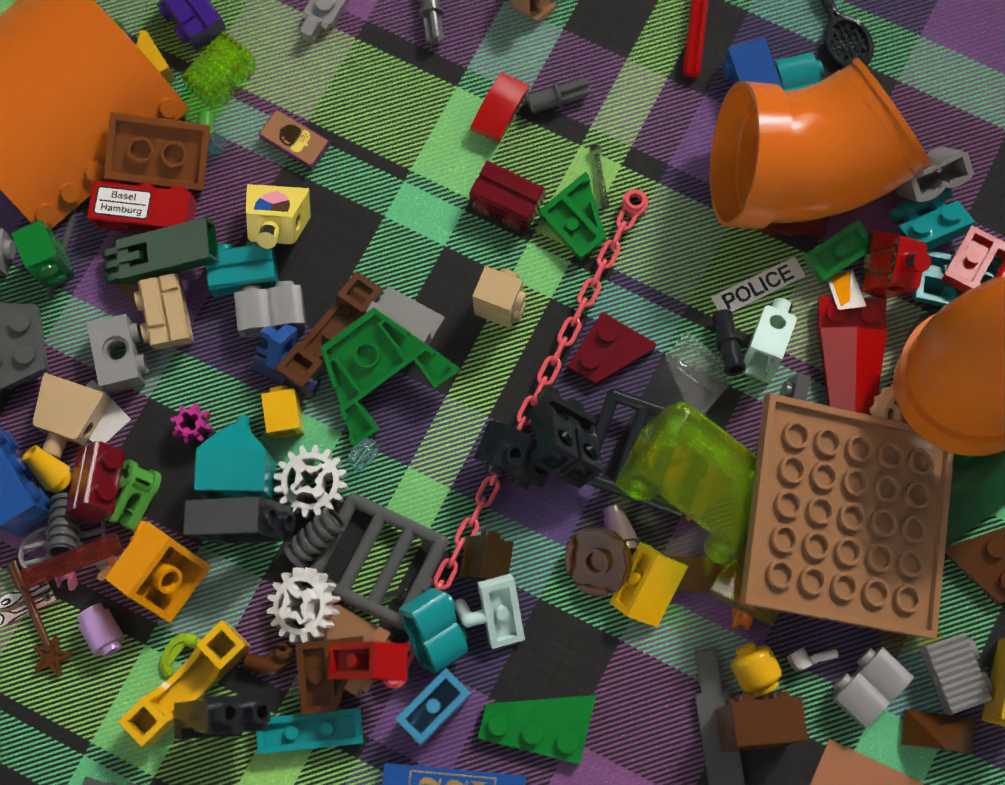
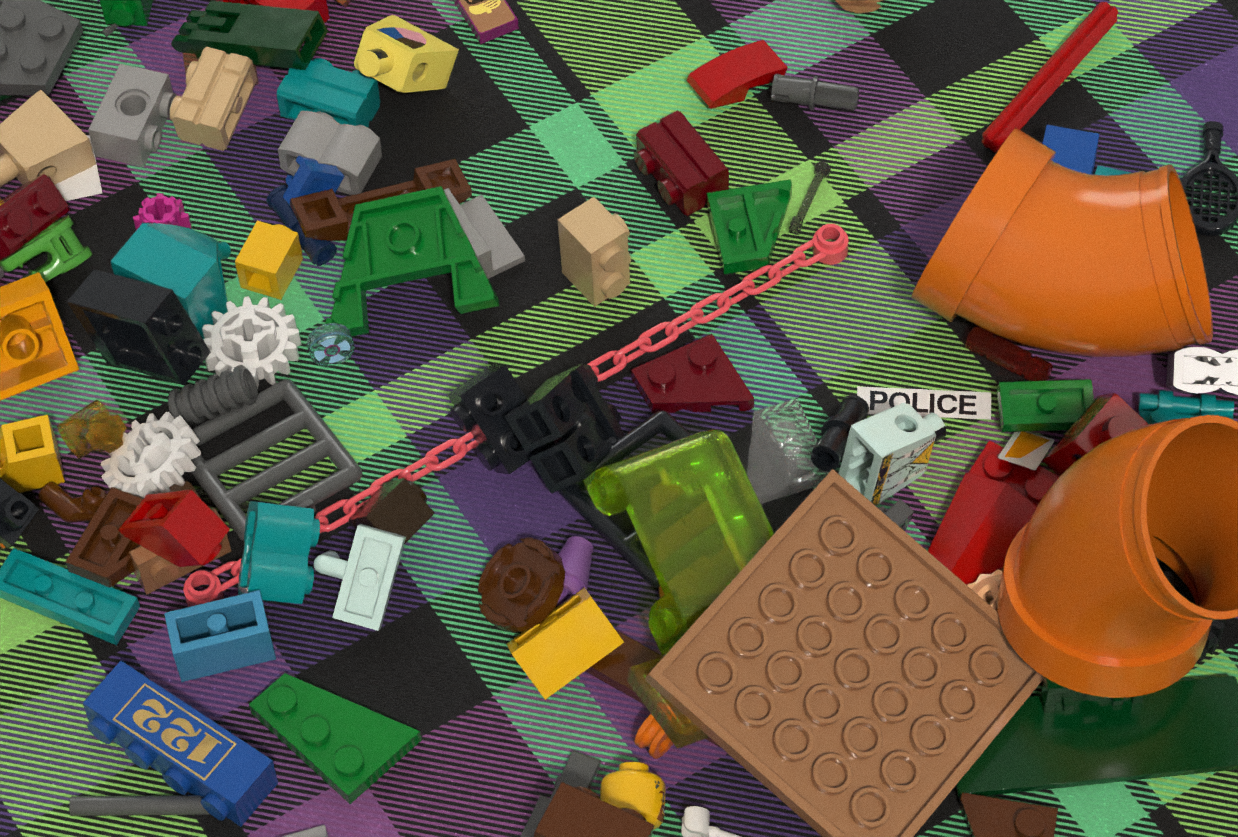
camera: 30 degrees right, 20 degrees down
(254, 607) = (92, 430): none -> clear yellow piece

